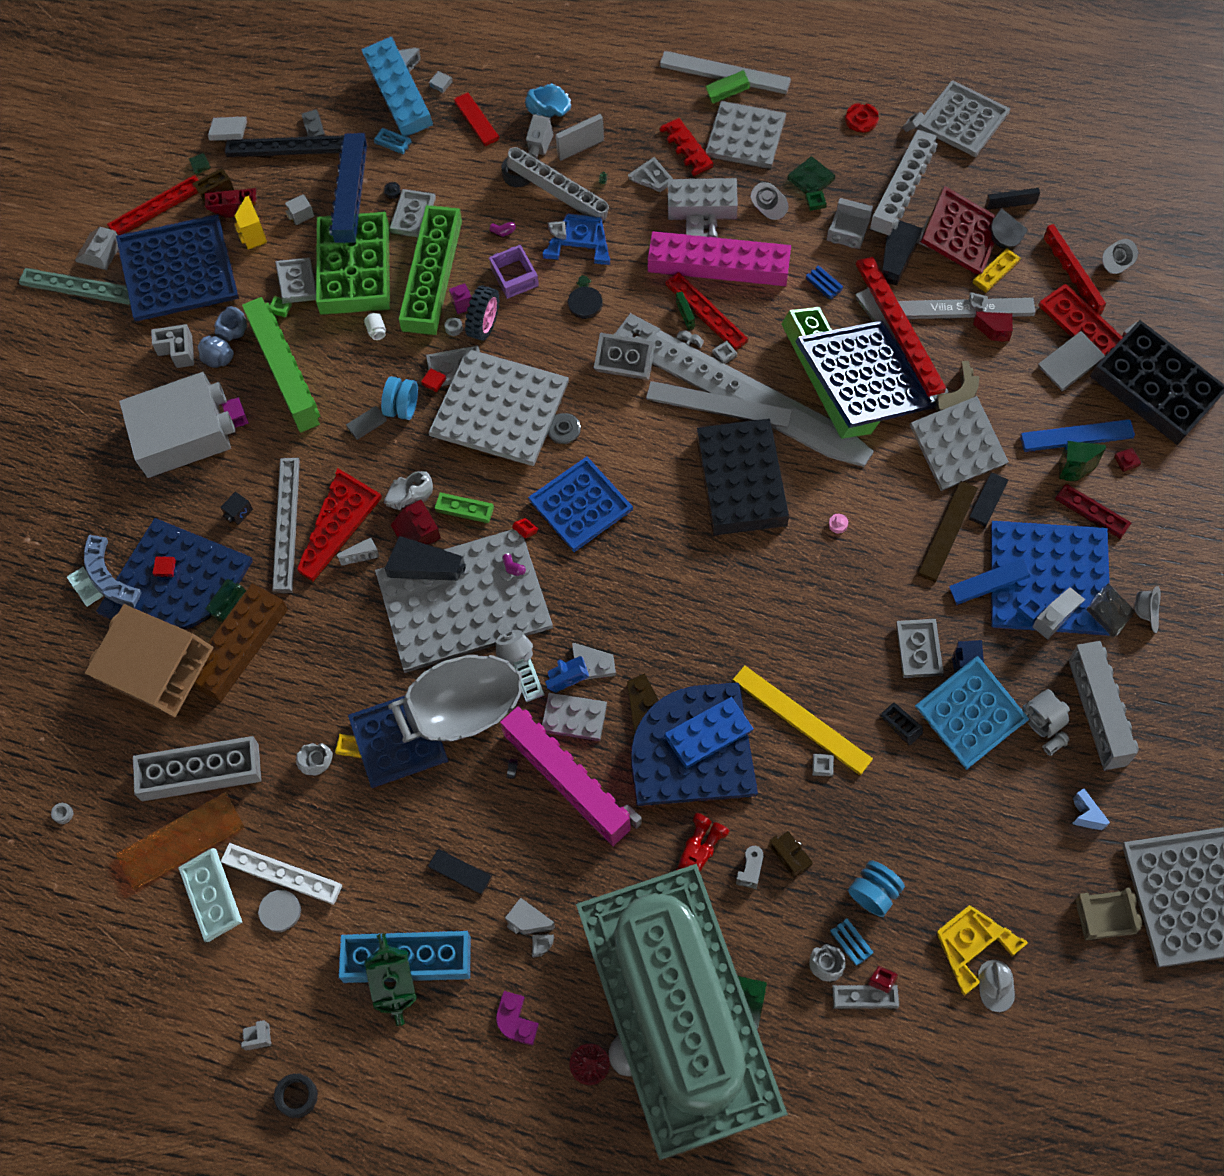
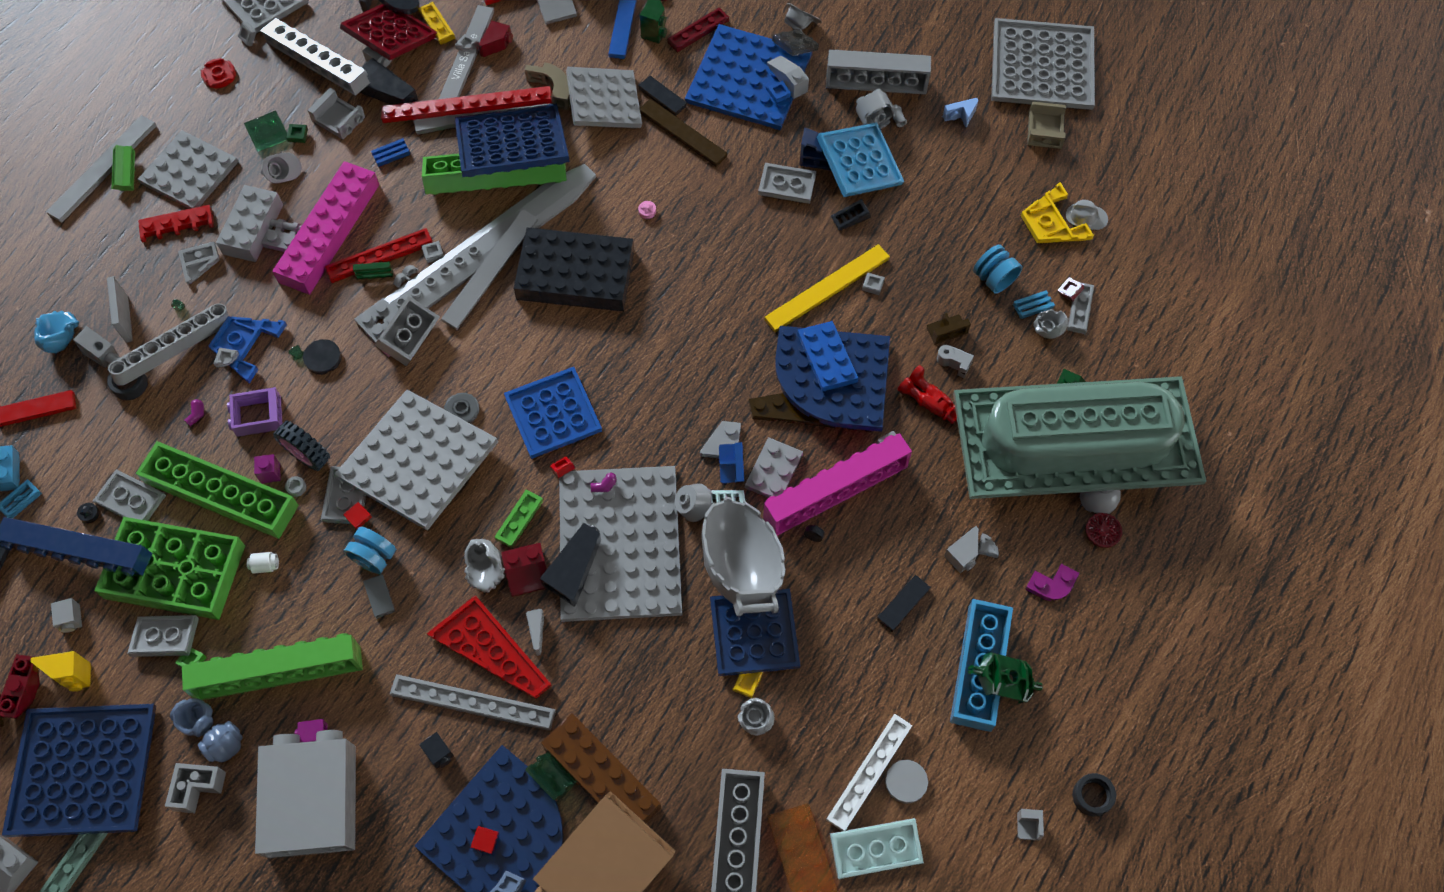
camera: 80 degrees left, 0 degrees up
(989, 581) = (743, 114): blue tile -> none

